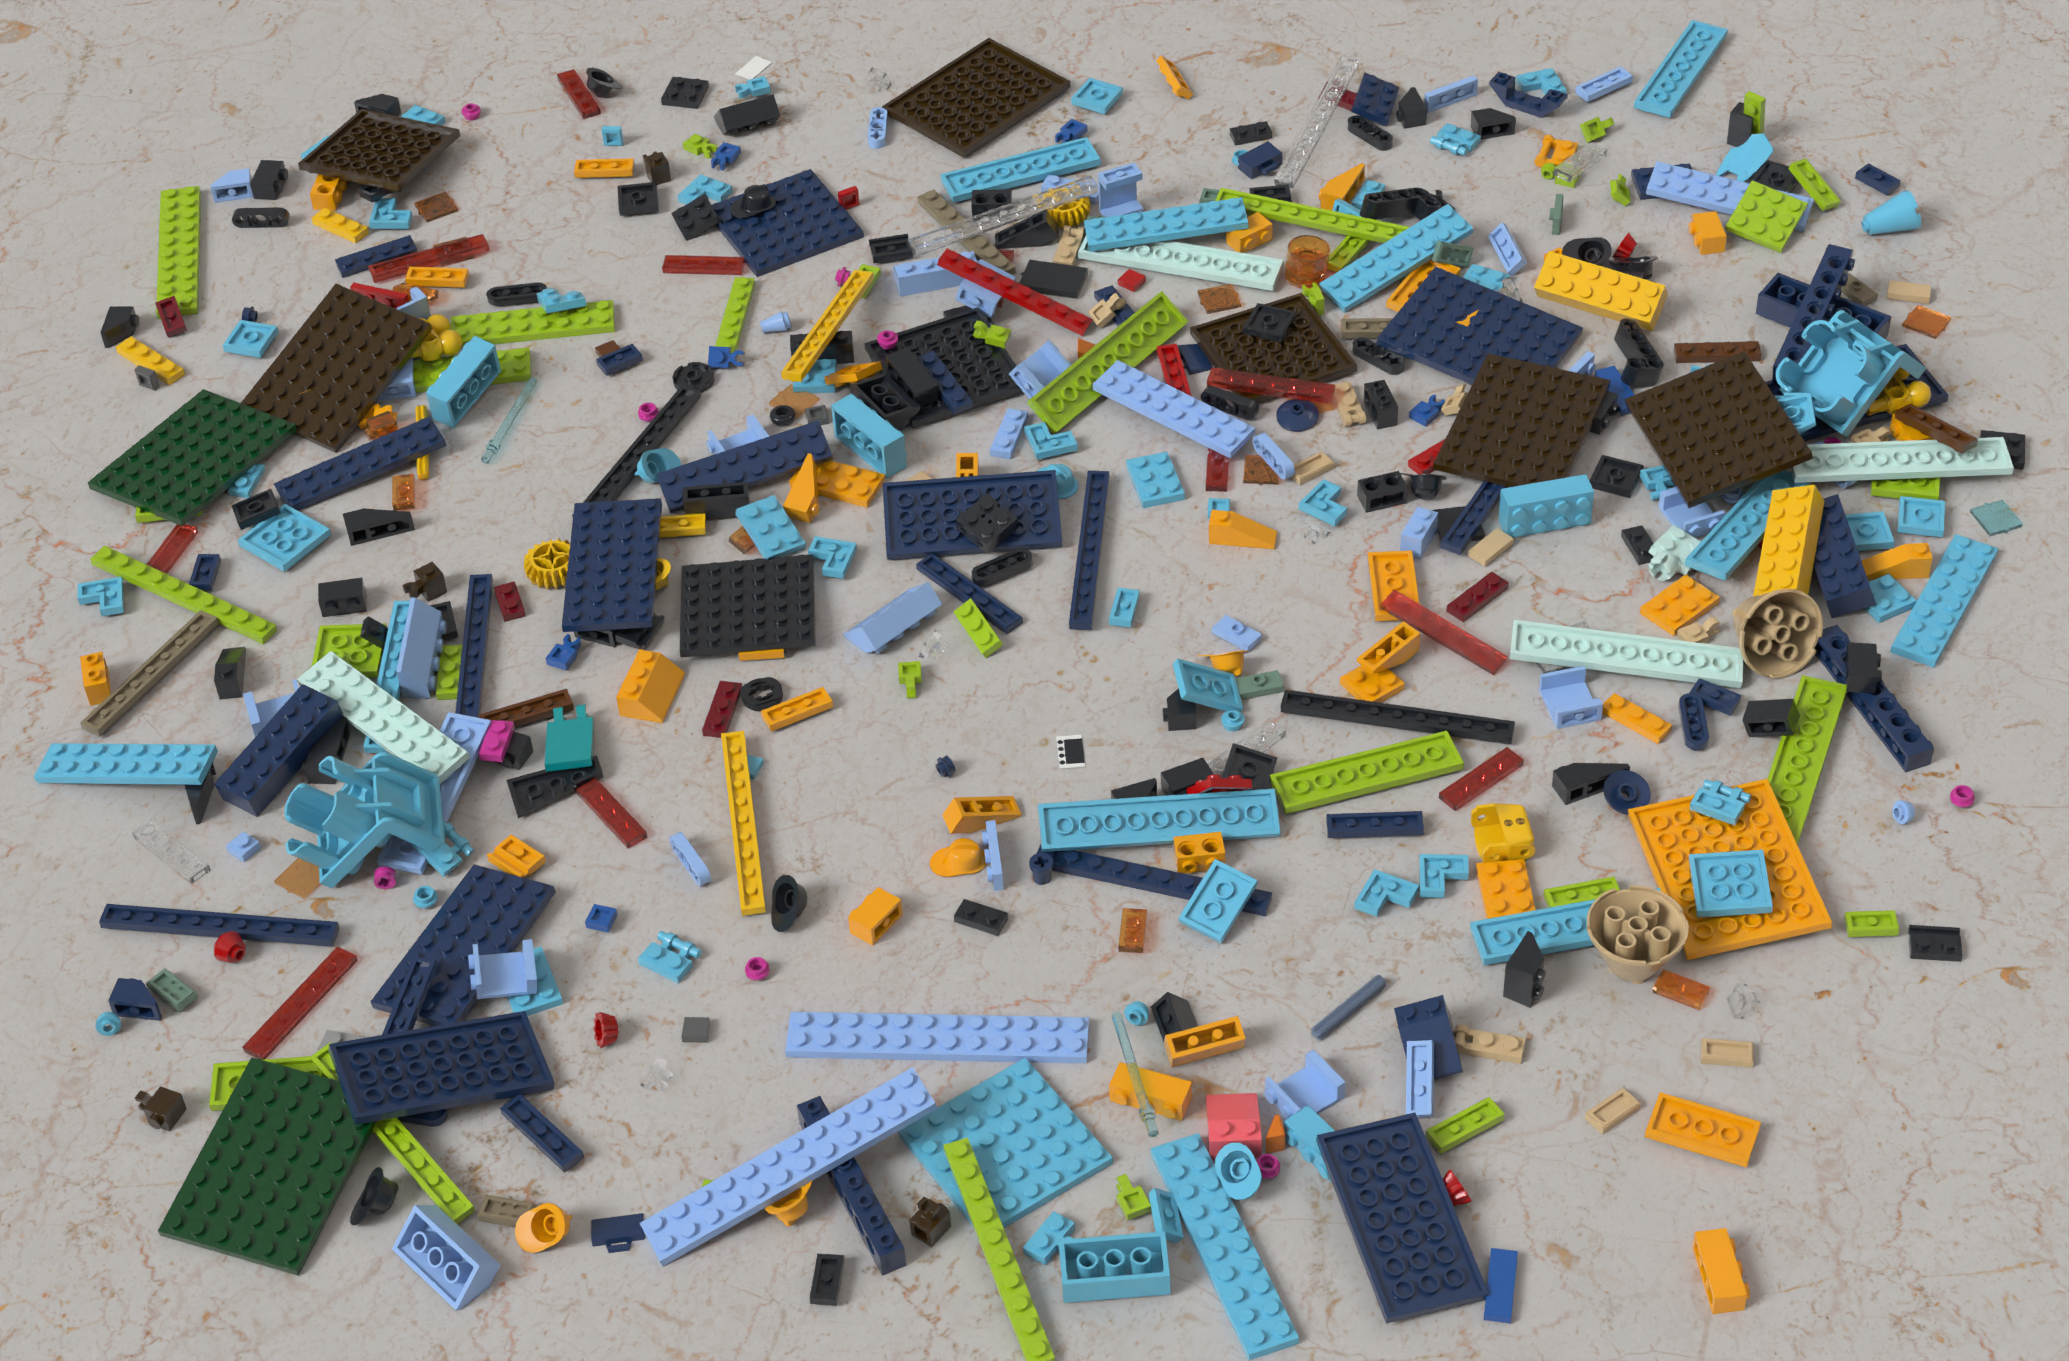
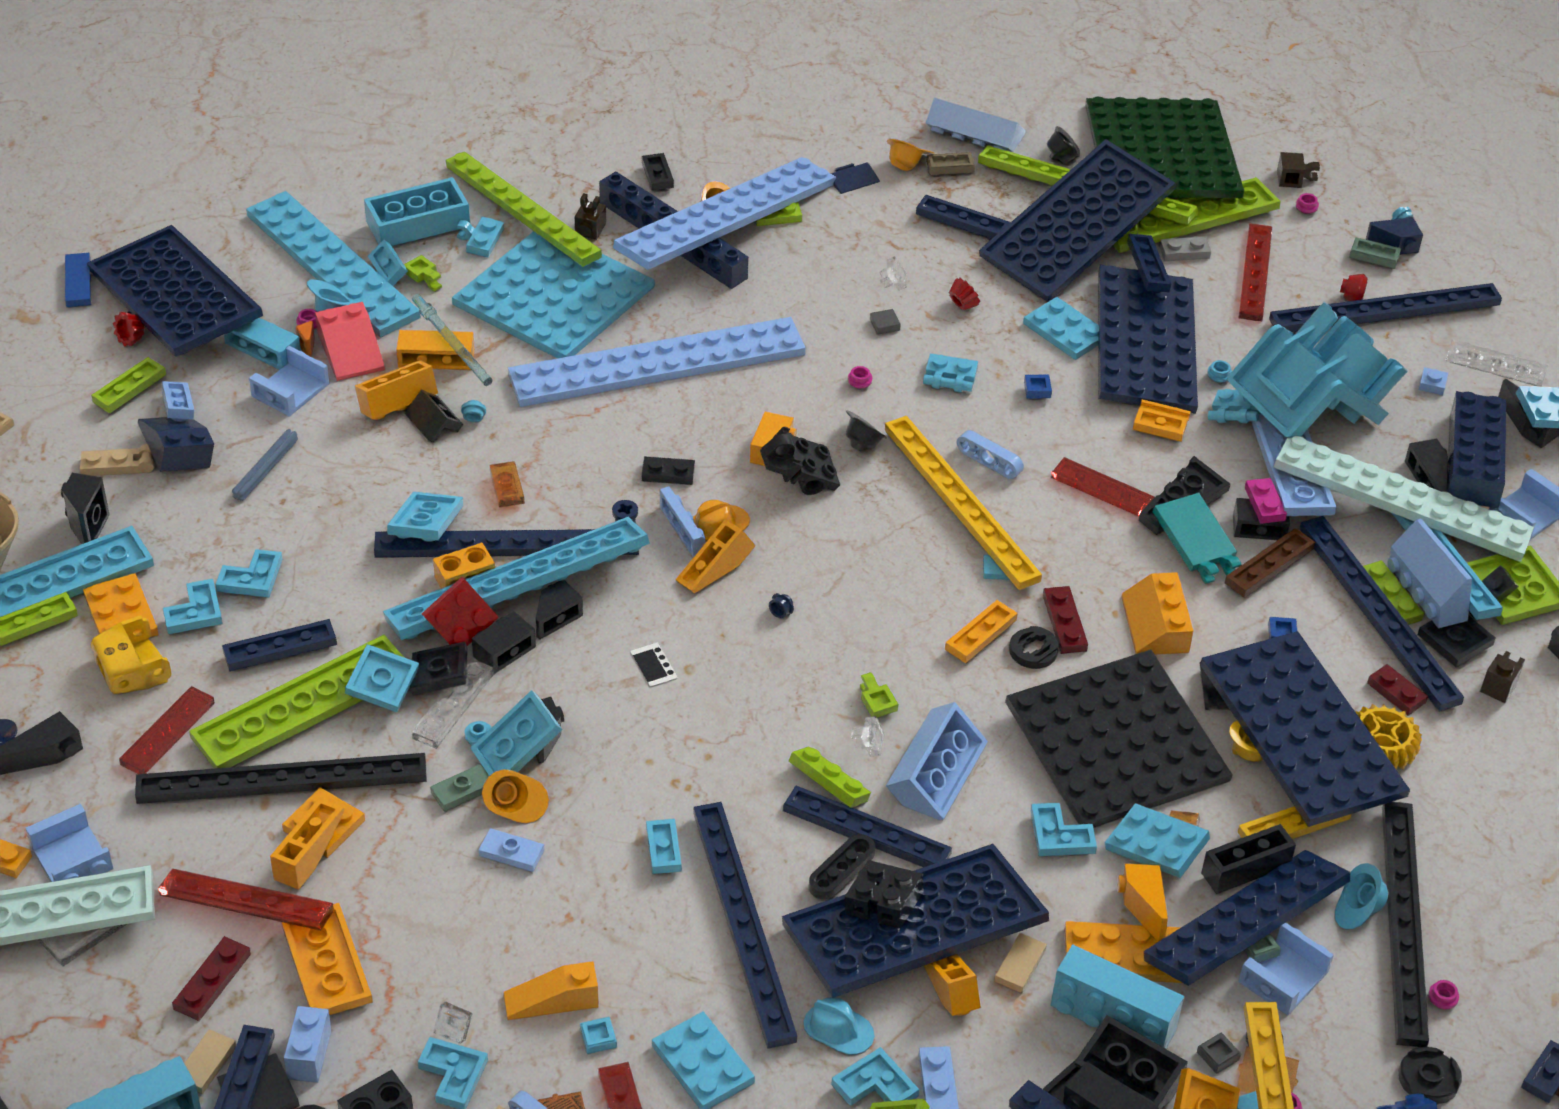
camera: 155 degrees right, 0 degrees up
(183, 1067) = (1307, 203): none -> dark pink plate
(504, 972) = (1087, 304): light blue panel -> none
(866, 868) = (801, 462): none -> black plate
(1298, 759) = (381, 678): none -> medium azure plate

